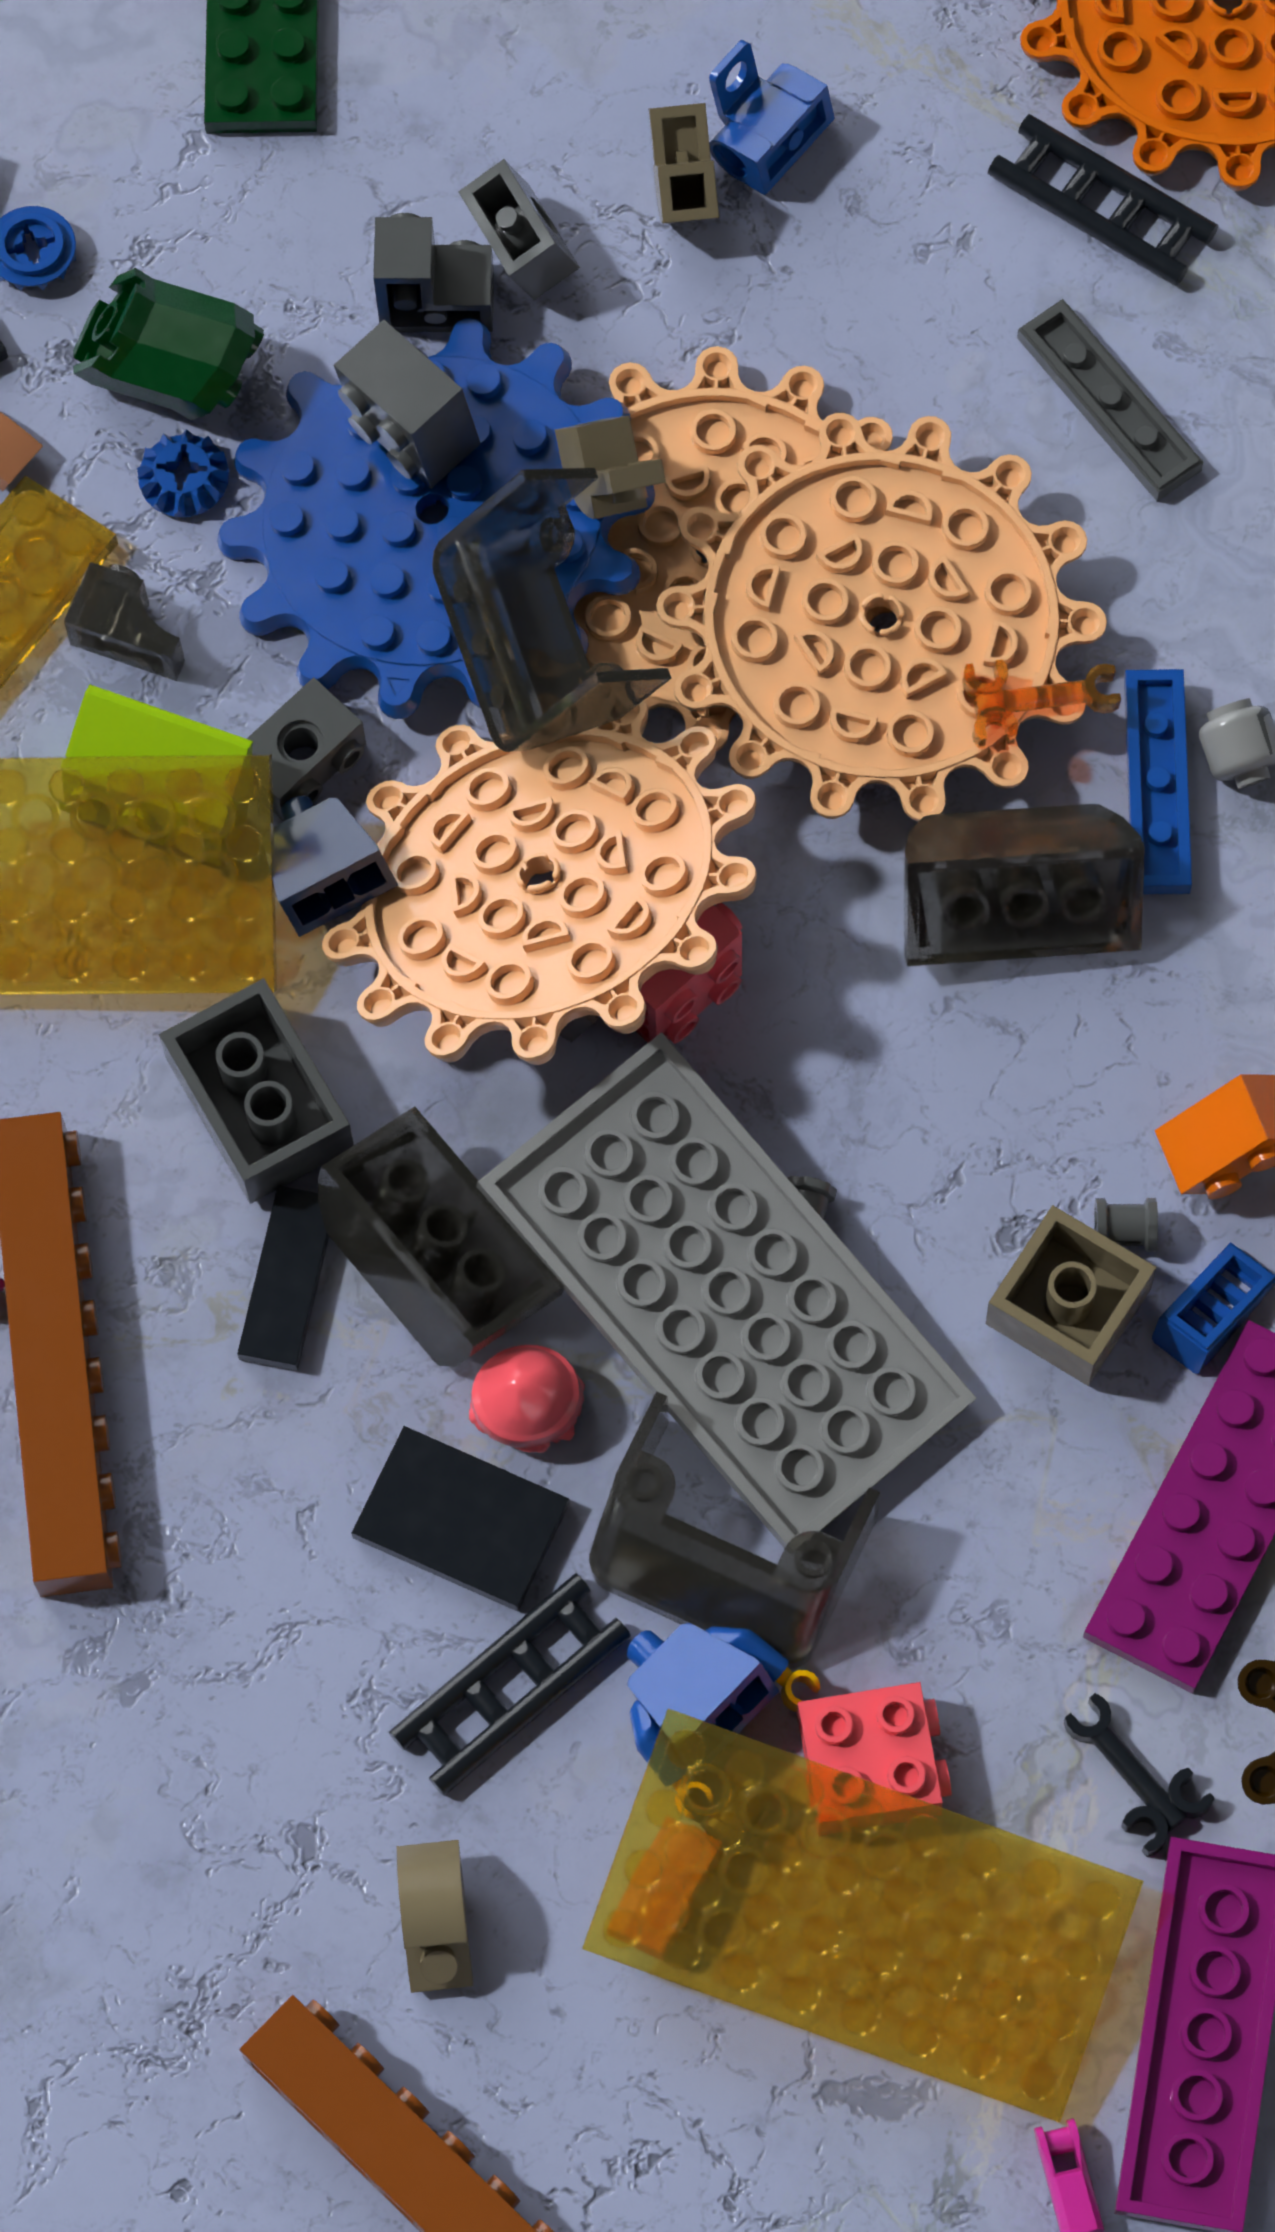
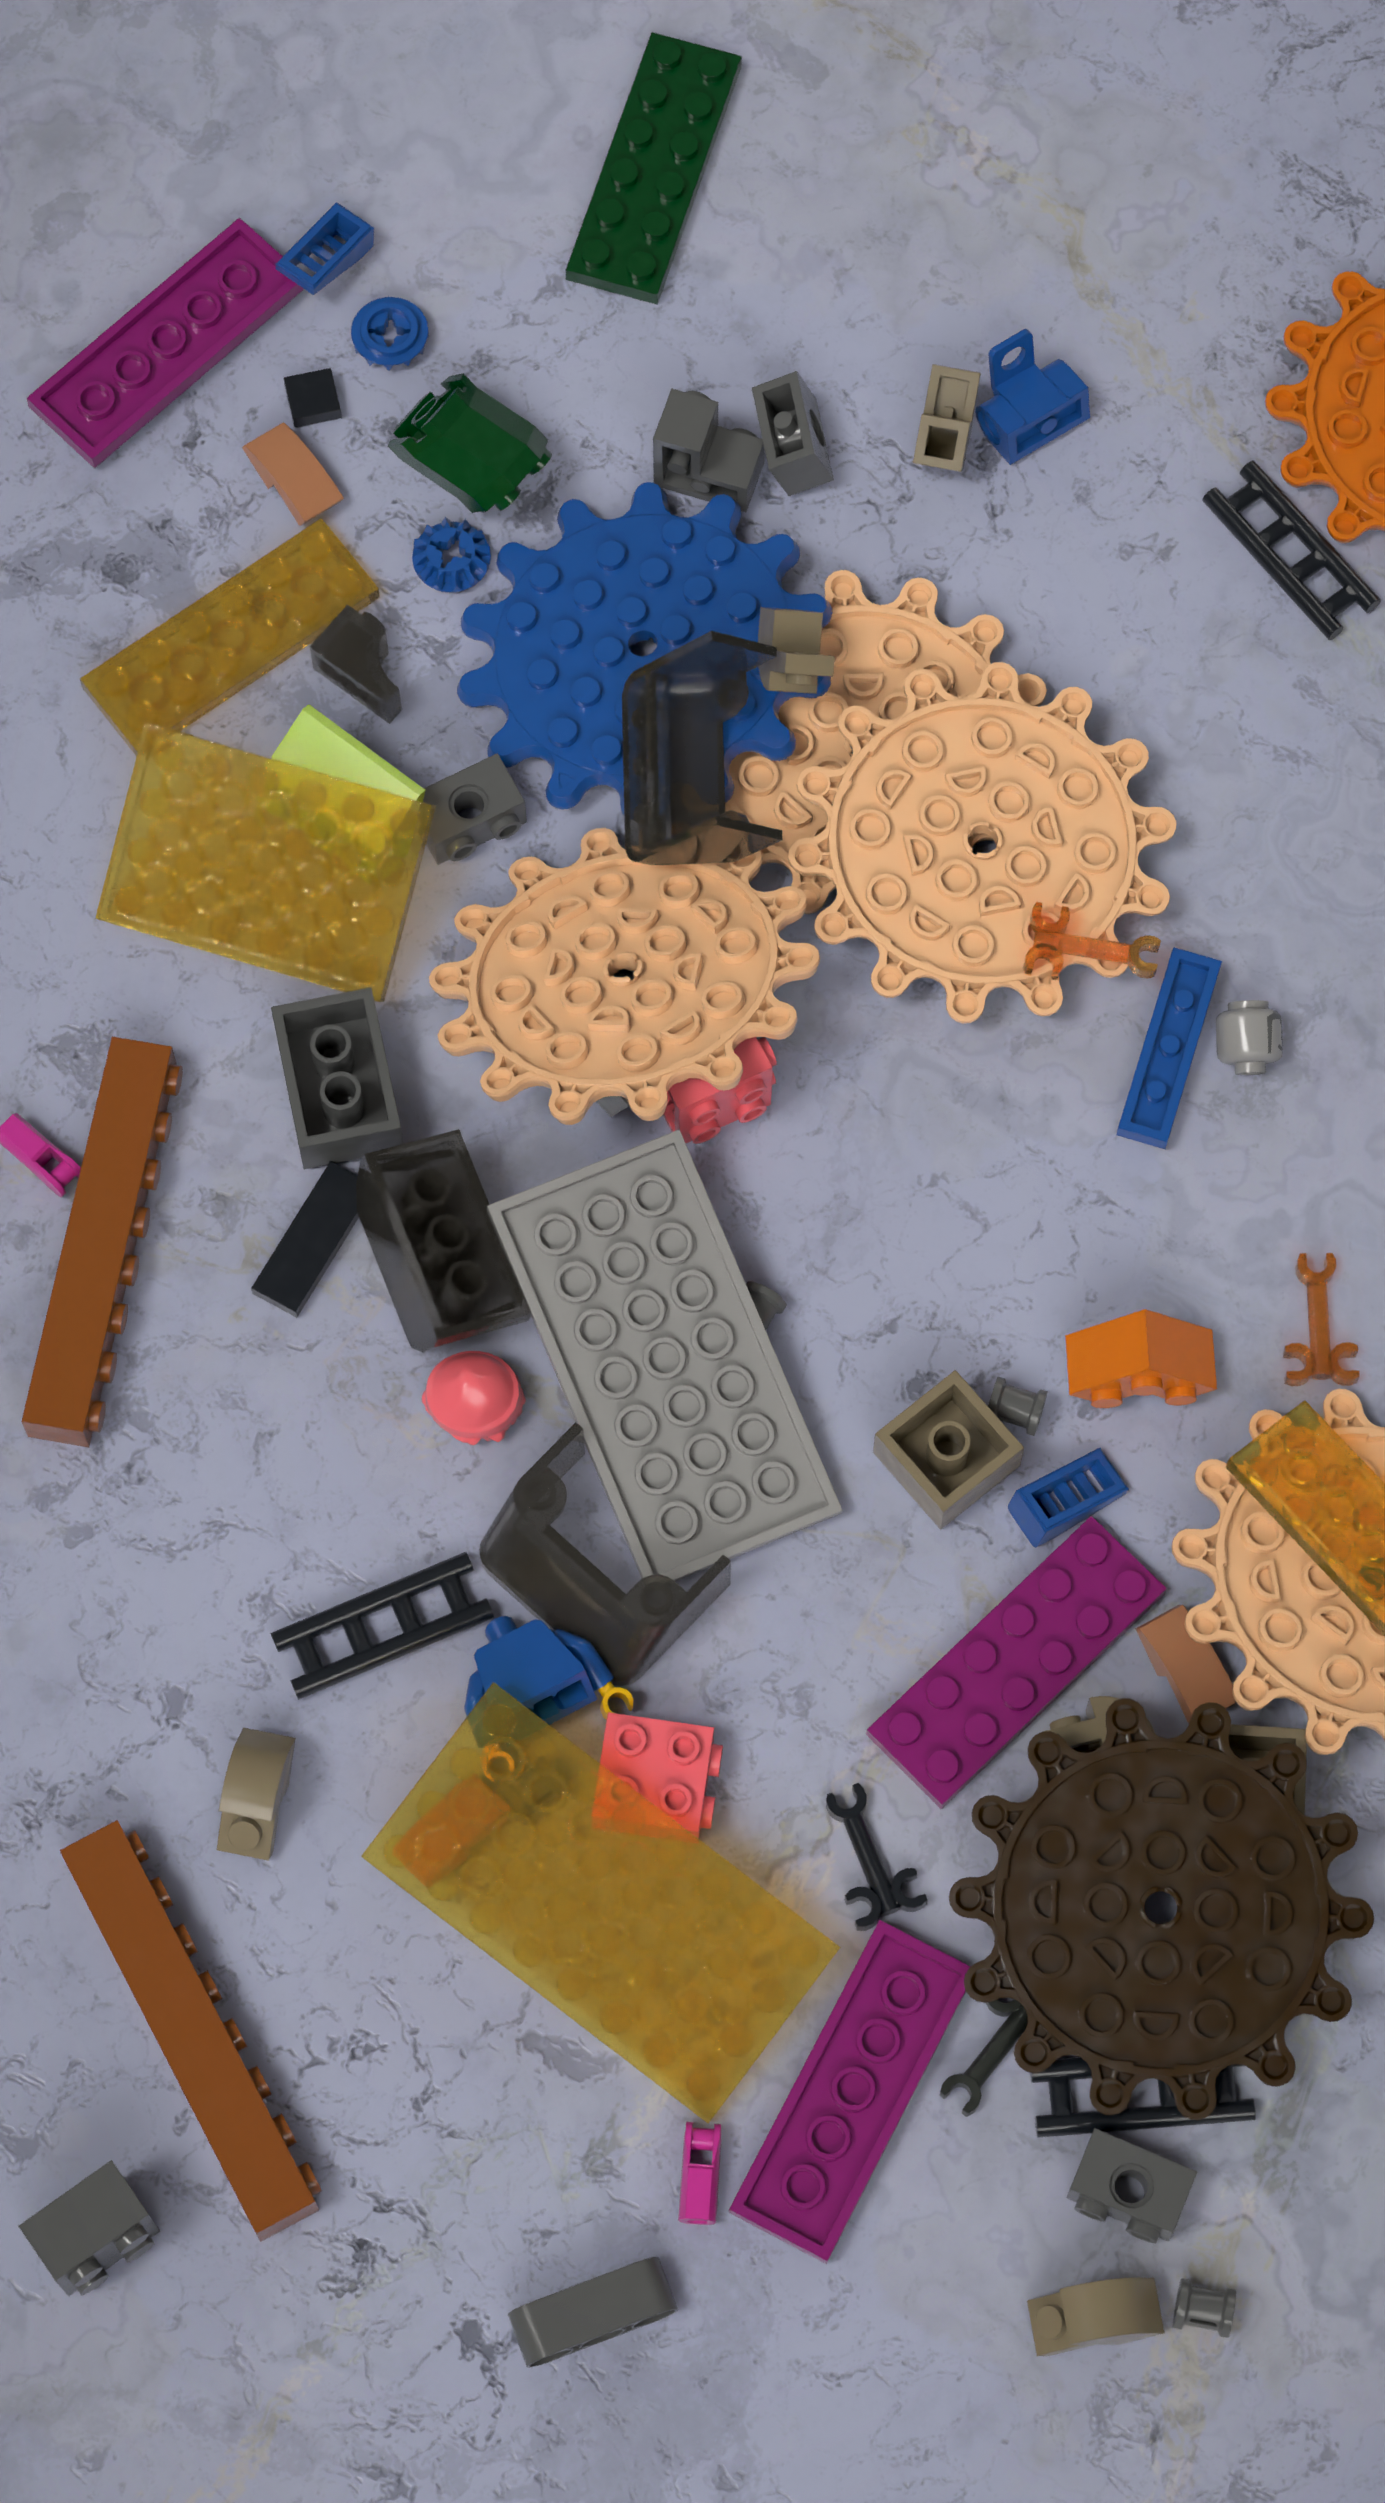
camera: 15 degrees right, 0 degrees up
(324, 863) = (452, 909): dark blue torso -> none
(406, 405) = (643, 551): dark grey brick -> none
(460, 1518) = (388, 1478): black tile -> none
(1022, 885) = (1022, 1098): clear smoke windscreen -> none
(1110, 400) = (1240, 719): dark grey tile -> none

